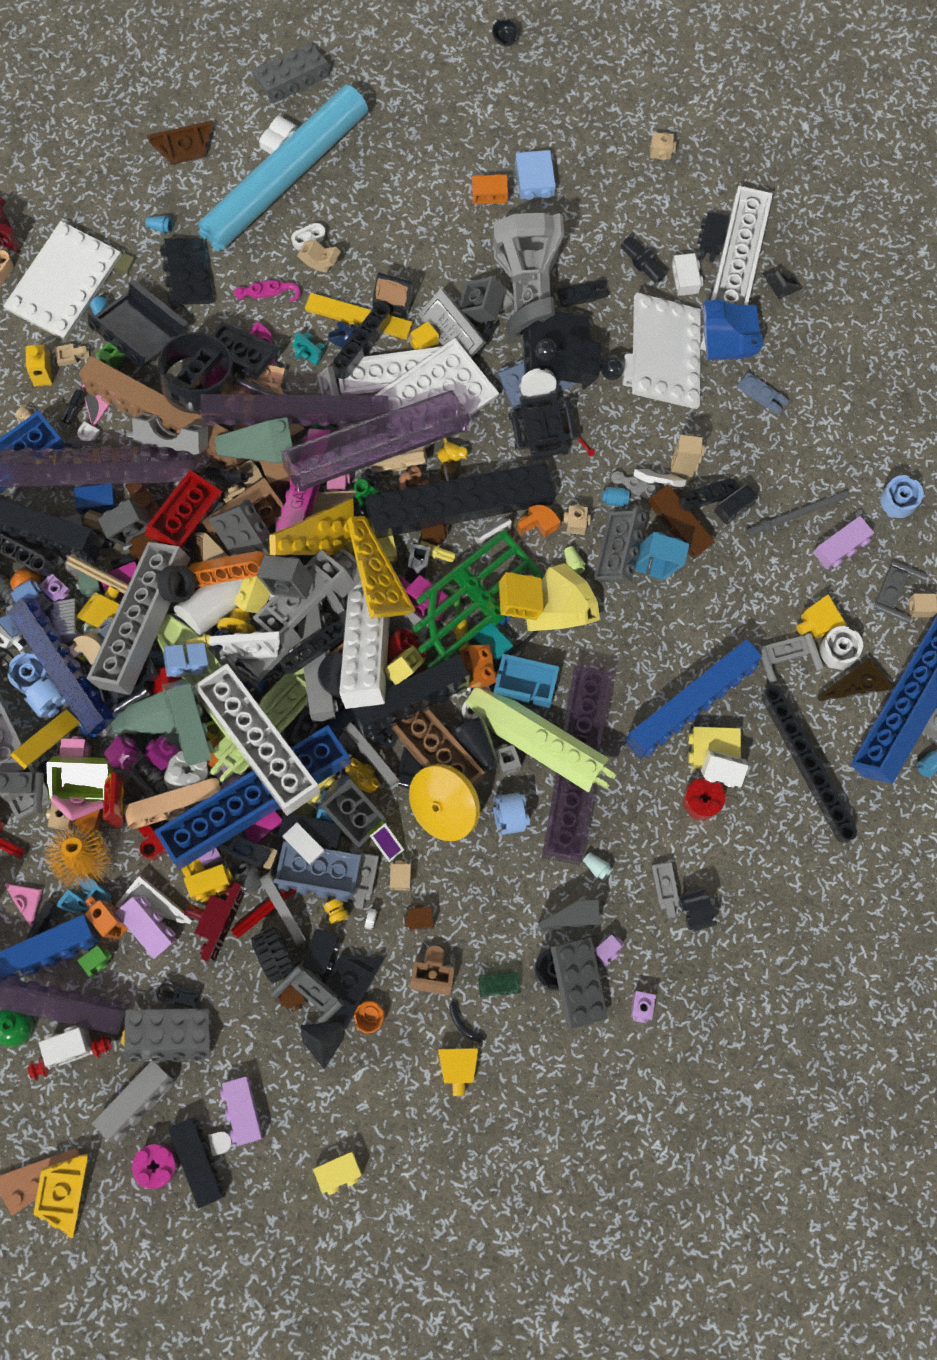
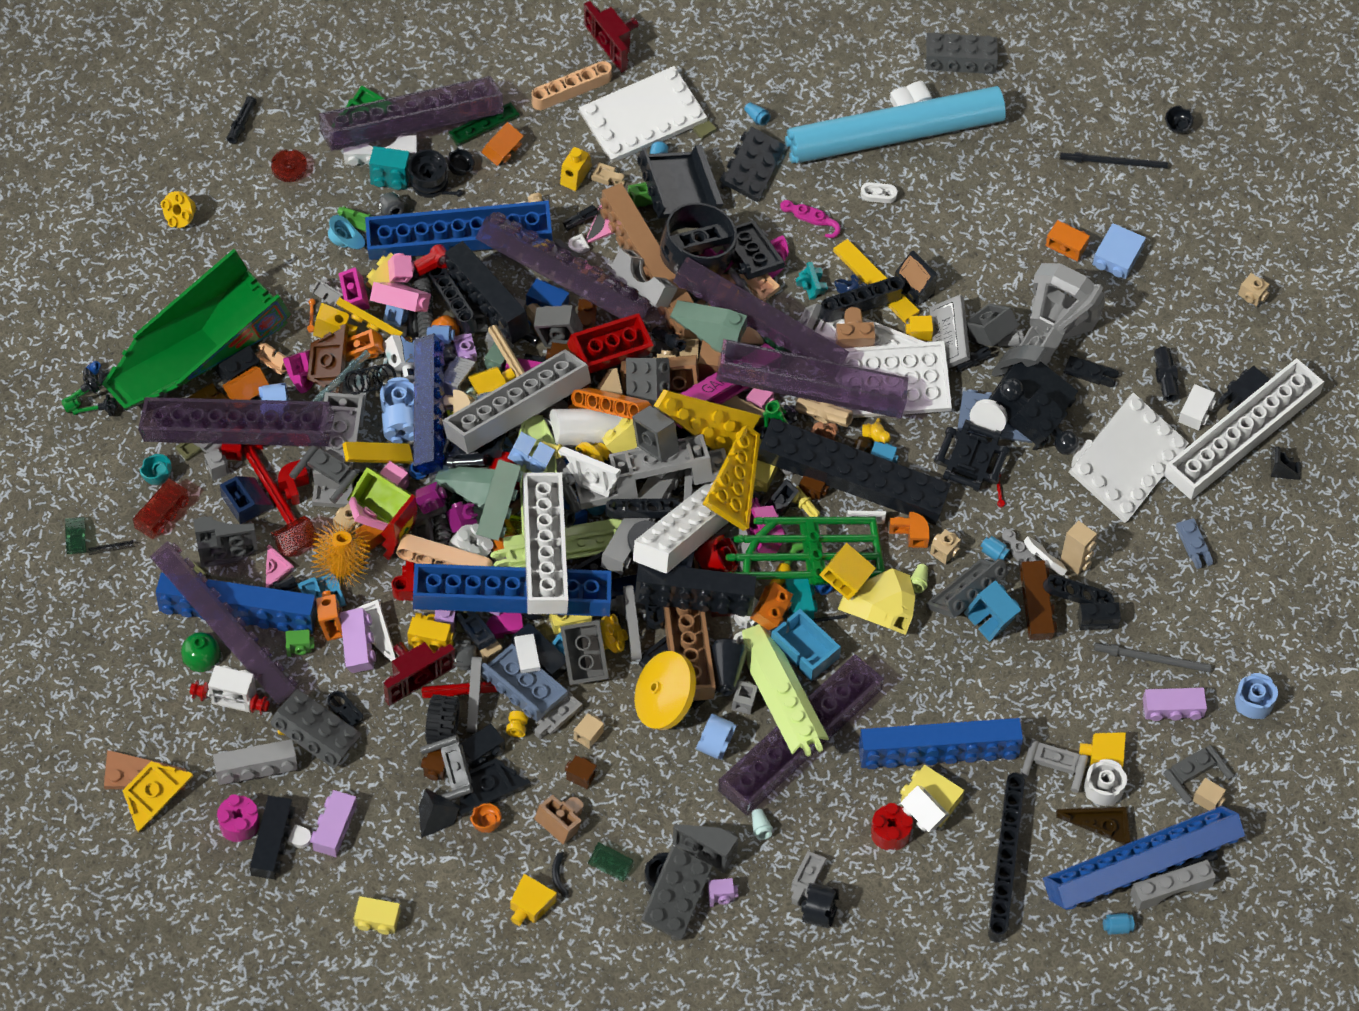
camera: 35 degrees right, 15 degrees down
(23, 862) = (294, 536): none -> clear red brick
(183, 143) = (825, 60): reddish brown wing -> none
(187, 581) = (552, 389): black tyre -> none
(317, 256) = (874, 212): tan brick -> none
(371, 918) = (540, 748): white tile -> none
(376, 374) = (854, 331): none -> medium nougat brick
(385, 841) = (596, 695): tile -> none
(404, 665) = (706, 558): light yellow brick -> none
(447, 111) = (1078, 157): none -> black bar
(471, 467) = (885, 451): none -> dark azure brick
(642, 998) = (715, 959): lavender brick -> none
(730, 330) = (1195, 468): blue slope -> none

